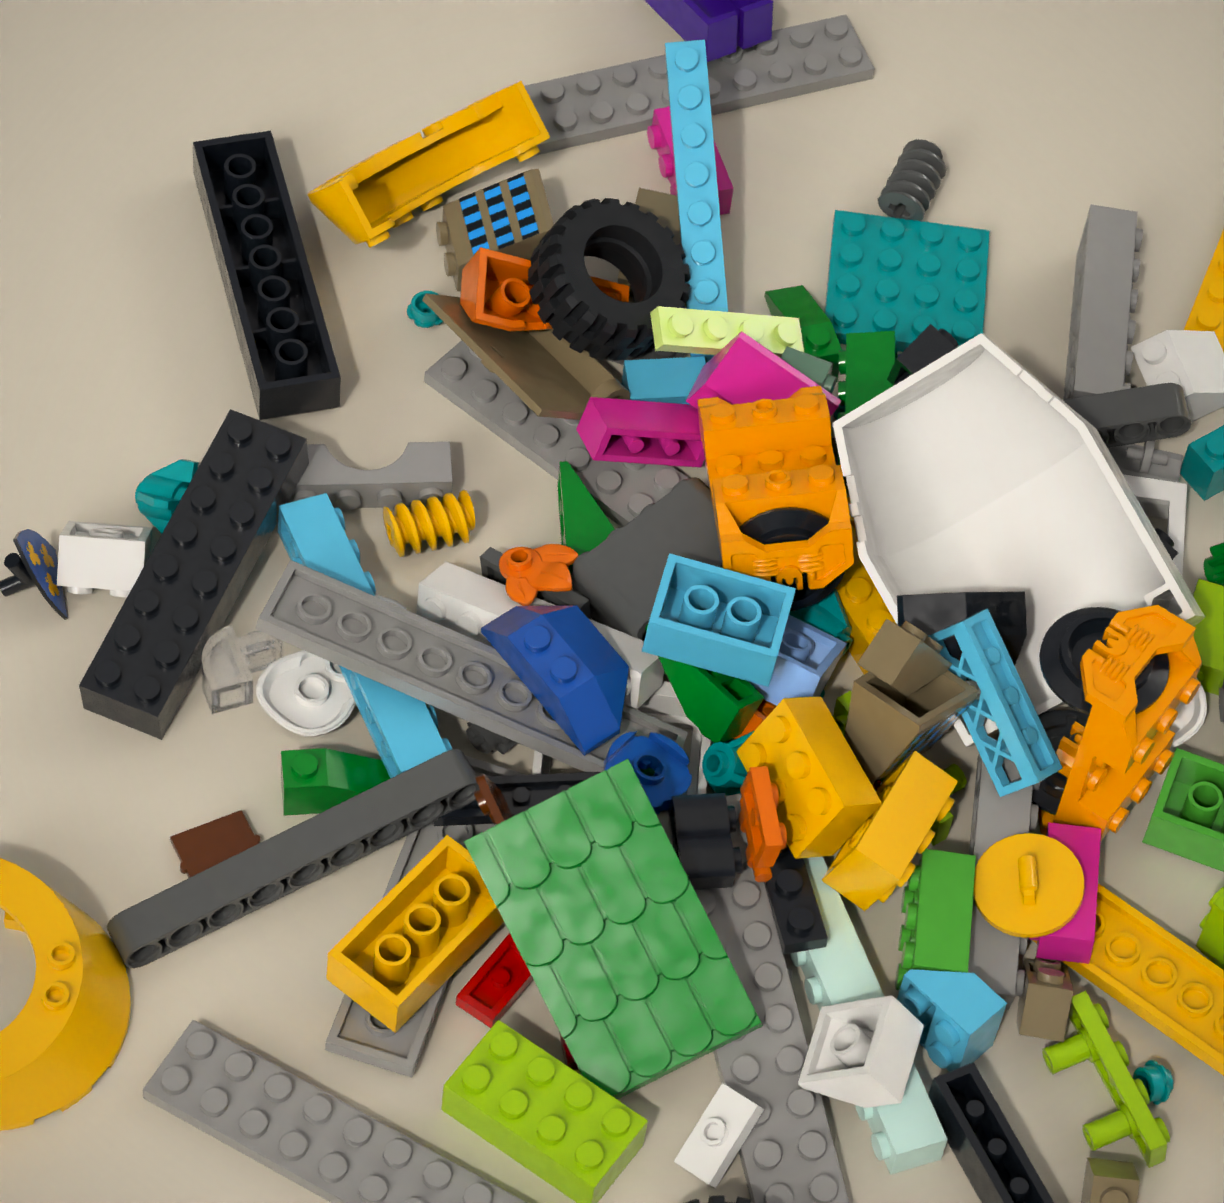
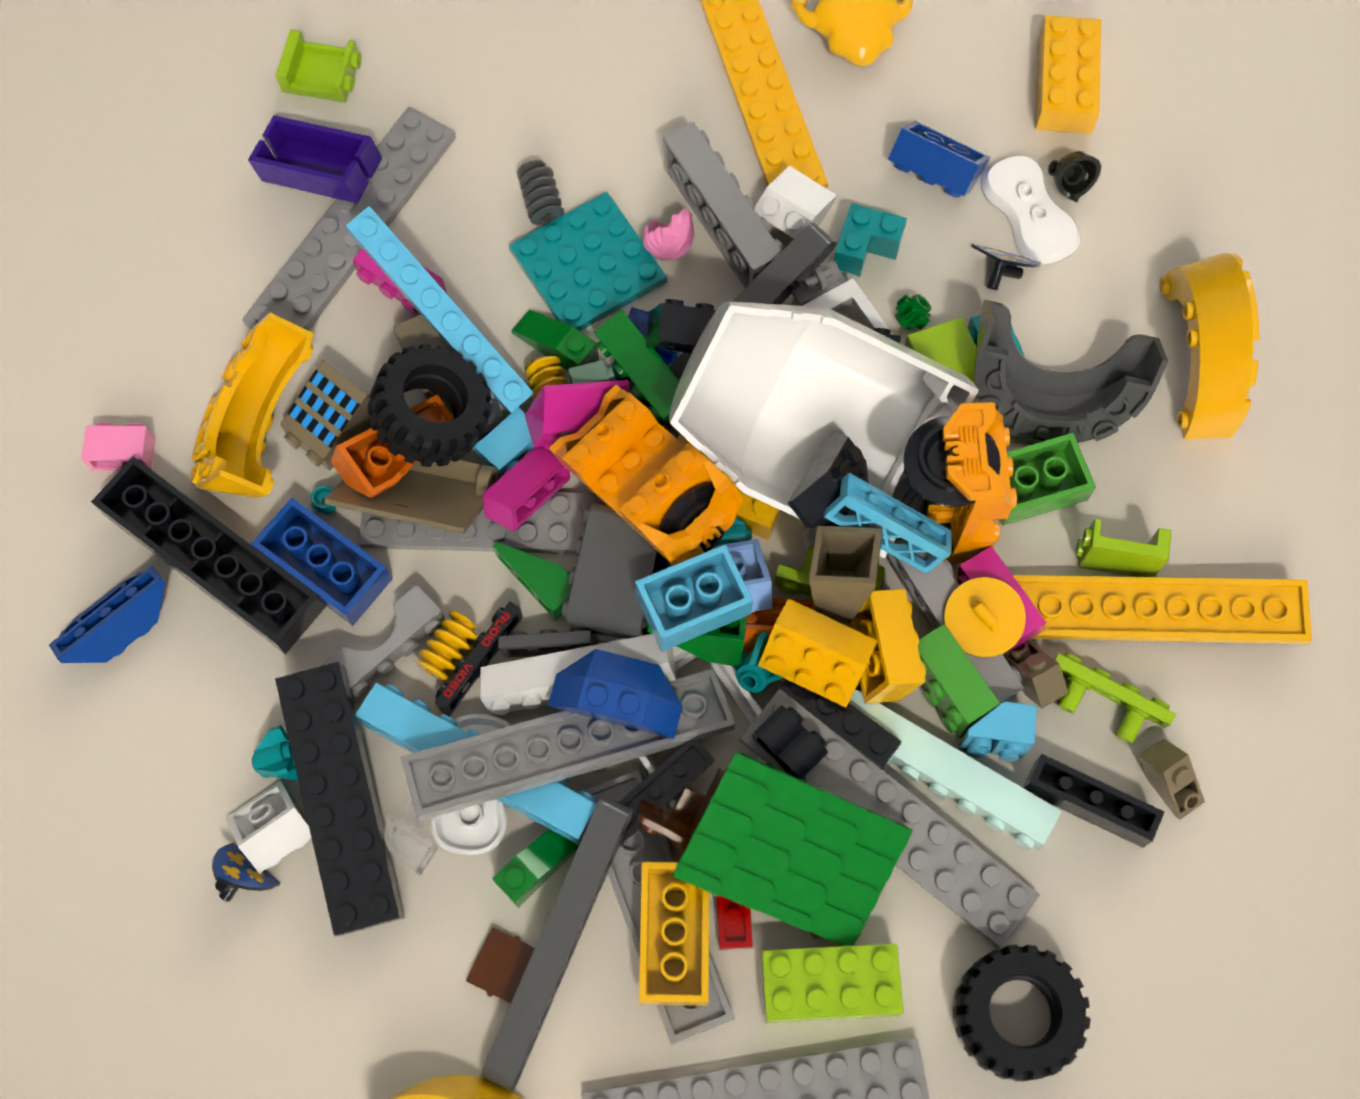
camera: 30 degrees left, 15 degrees up
(119, 268) = (112, 621): none -> blue wedge
(258, 109) = (112, 446): none -> bright pink brick
(376, 357) = (323, 560): none -> blue brick
(409, 567) = (484, 650): none -> black plate
(536, 570) = (549, 636): orange plate -> none
(661, 755) = (719, 739): blue plate -> none
(710, 331) = (524, 387): yellowish green plate -> none
(718, 1135) = (937, 913): white plate -> none
(760, 822) = (827, 714): orange plate -> none
(862, 1052) = (979, 801): white slope -> none
(904, 657) = (830, 546): dark tan slope -> none
(1016, 315) = (670, 239): none -> bright pink hair
(1156, 1080) = (1130, 673): teal plate -> none

